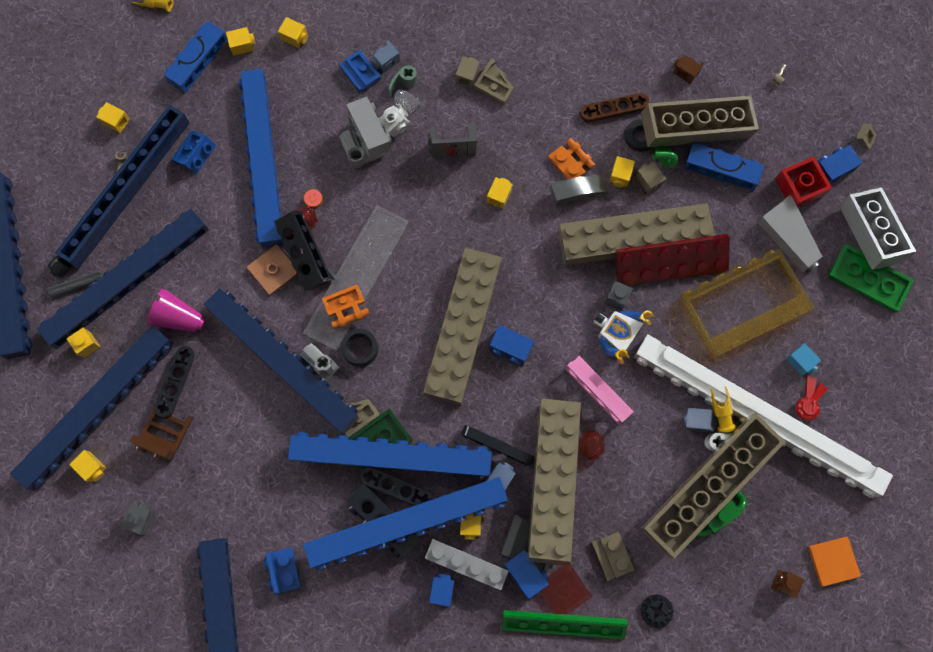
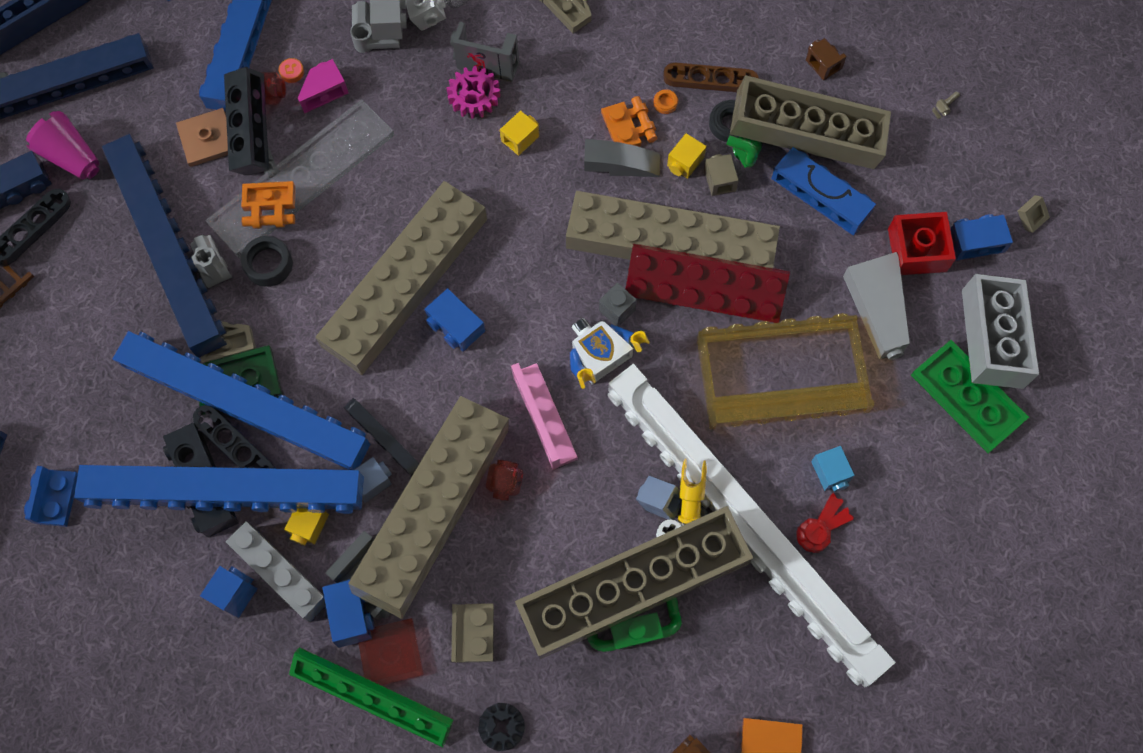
camera: 25 degrees right, 5 degrees down
(343, 202) = (322, 86): none -> dark pink slope
(450, 165) = (473, 91): none -> dark pink gear
(589, 135) = (665, 101): none -> orange tile

